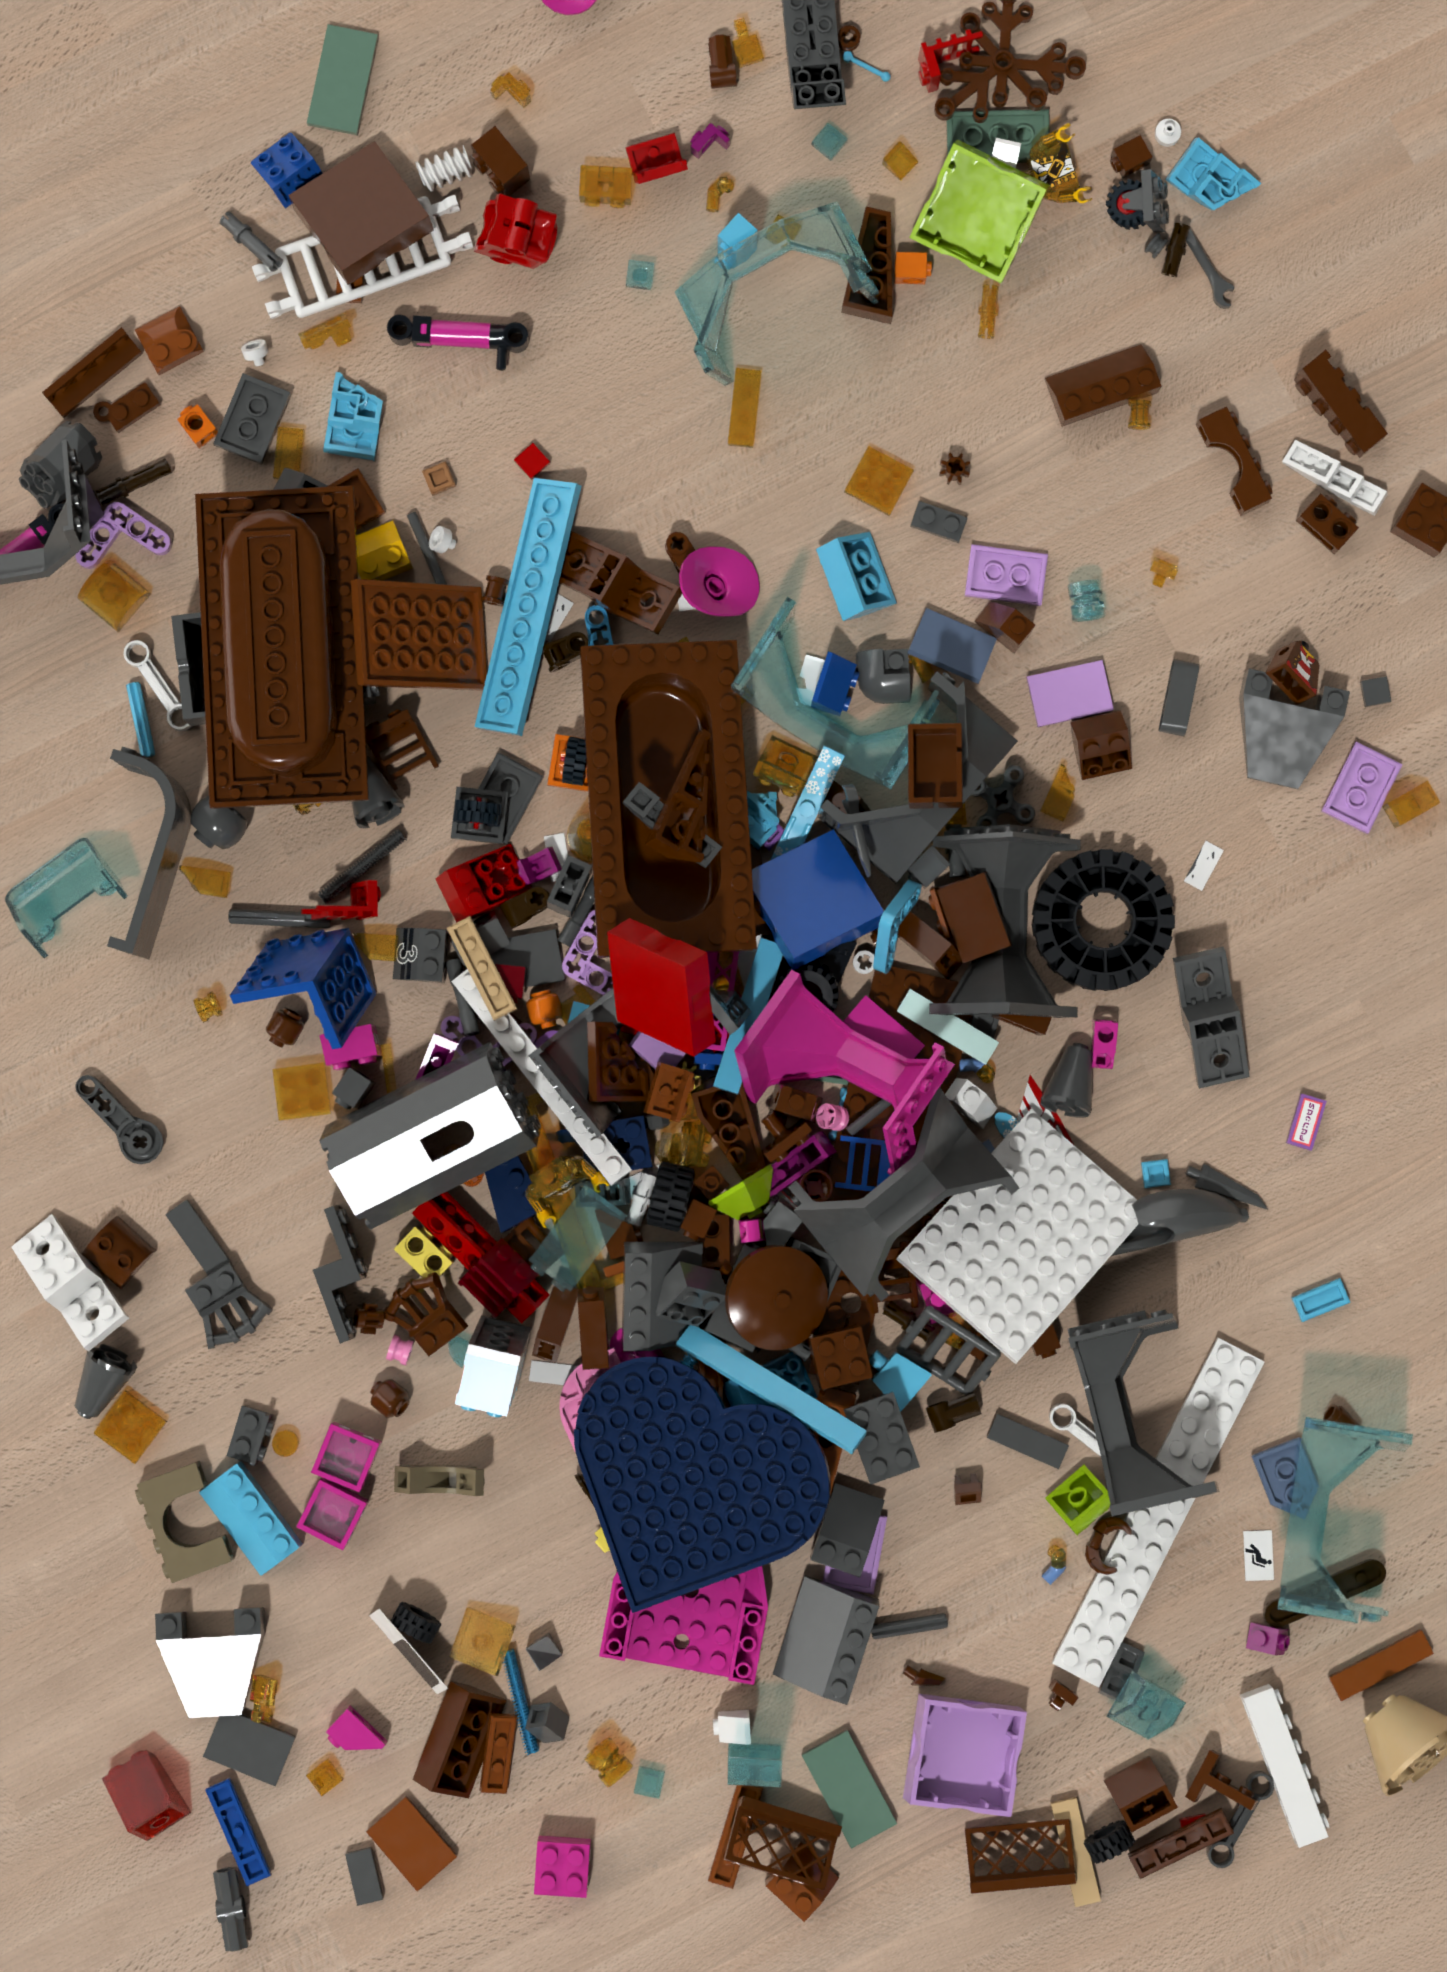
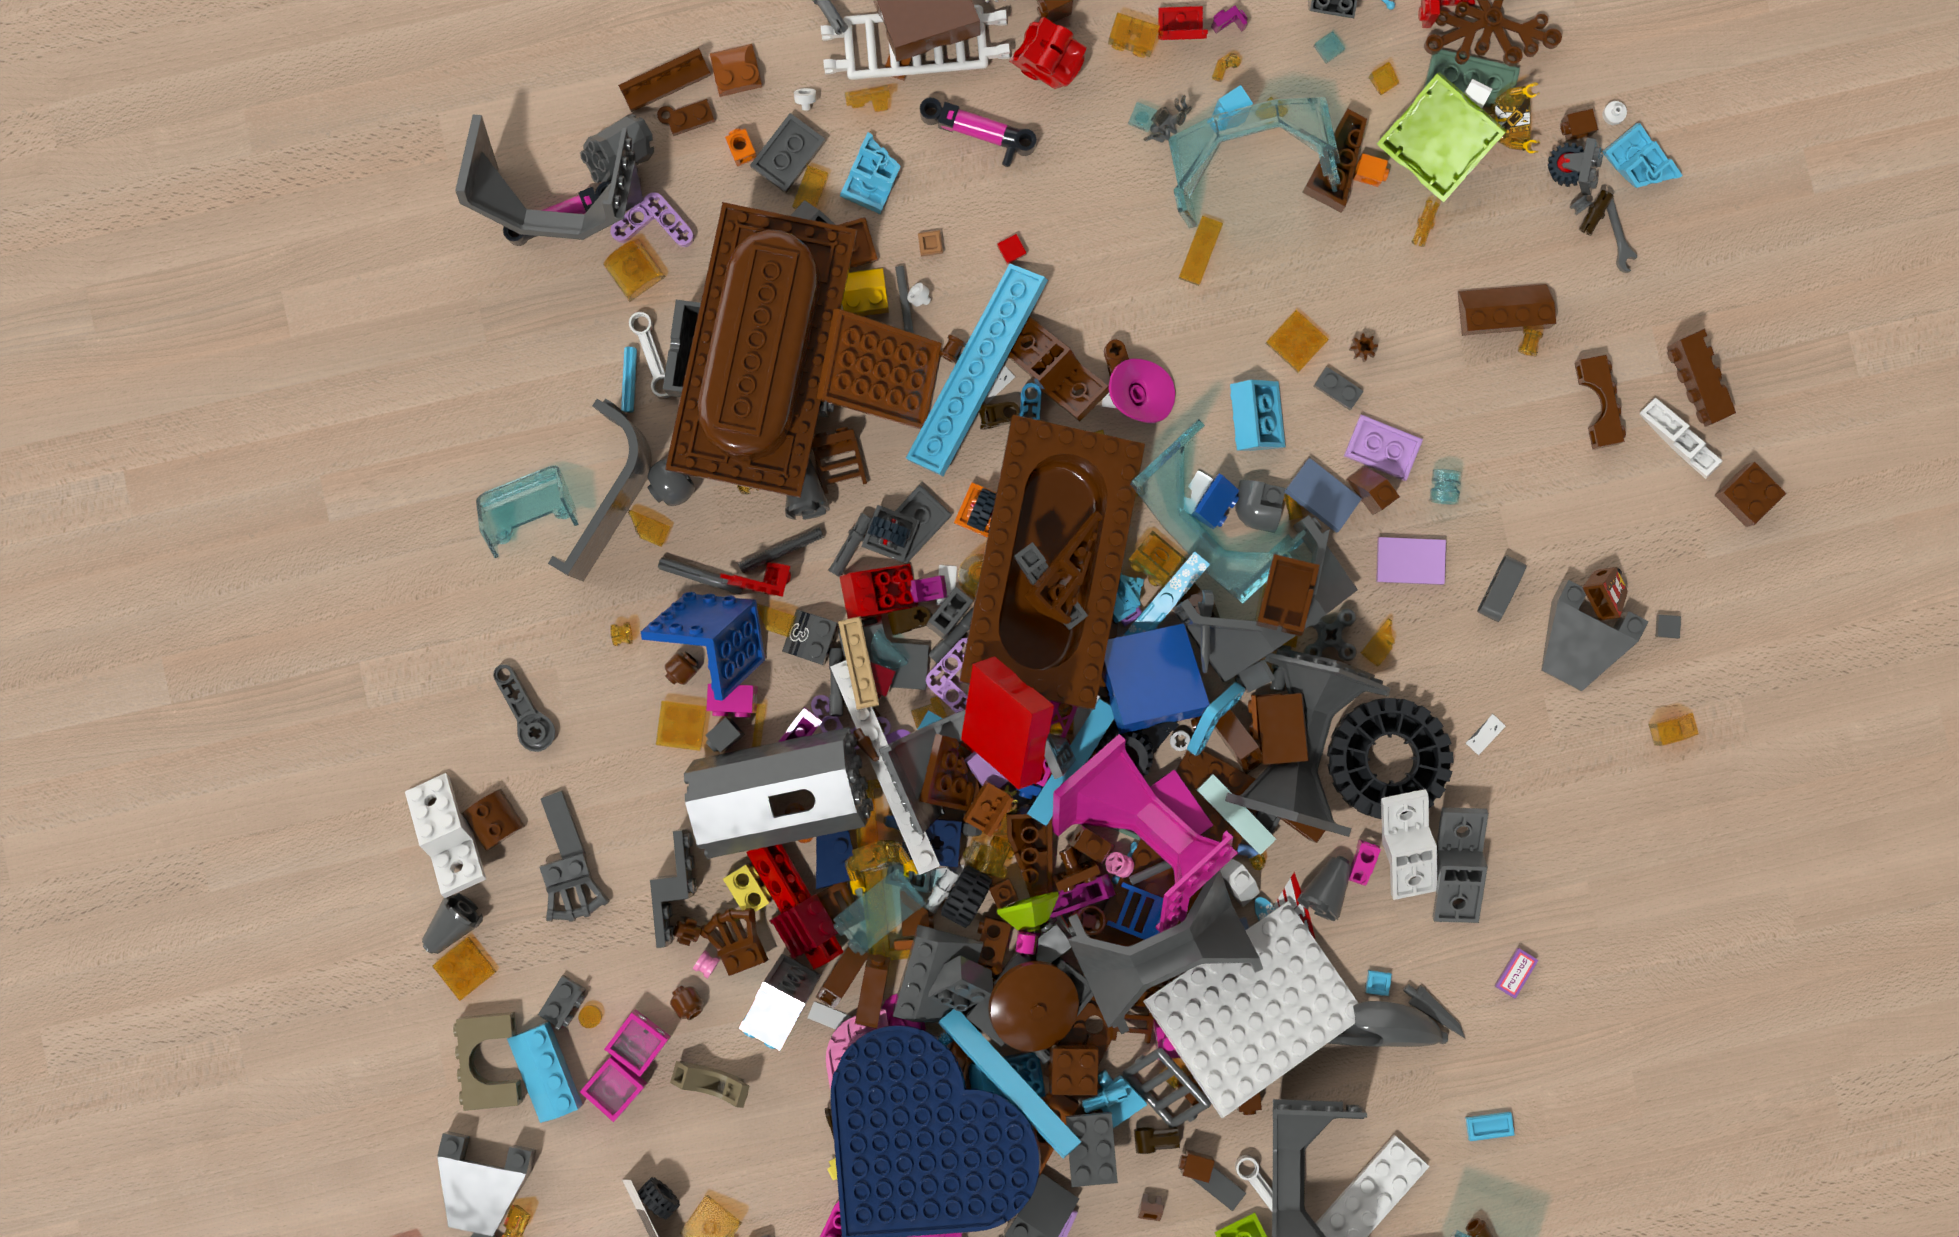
camera: 15 degrees right, 0 degrees up
(138, 479) = (672, 180): dark brown pin -> none
(440, 833) = (853, 540): none -> dark grey pin
(458, 1349) = (755, 977): clear light blue tile -> none
(509, 949) = (886, 653): none -> clear light blue tile
(513, 1056) = (865, 744): none -> reddish brown bar
(544, 1009) = (902, 710): orange head -> none
(666, 273) = (1164, 122): none -> animal
(697, 1220) = (984, 923): reddish brown brick -> none
(883, 1380) = (1105, 1099): none -> medium azure axle
(904, 1318) = (1136, 1050): dark brown pin -> none
(1004, 1428) = (1196, 1165): none -> reddish brown brick
(1101, 745) = (1426, 611): reddish brown slope -> none
(1147, 1009) = (1409, 844): none -> white bracket
(1162, 569) = (1515, 478): clear yellow tile -> none
(1323, 528) = (1660, 478): reddish brown brick -> none
(1361, 787) = (1635, 704): lavender tile -> none

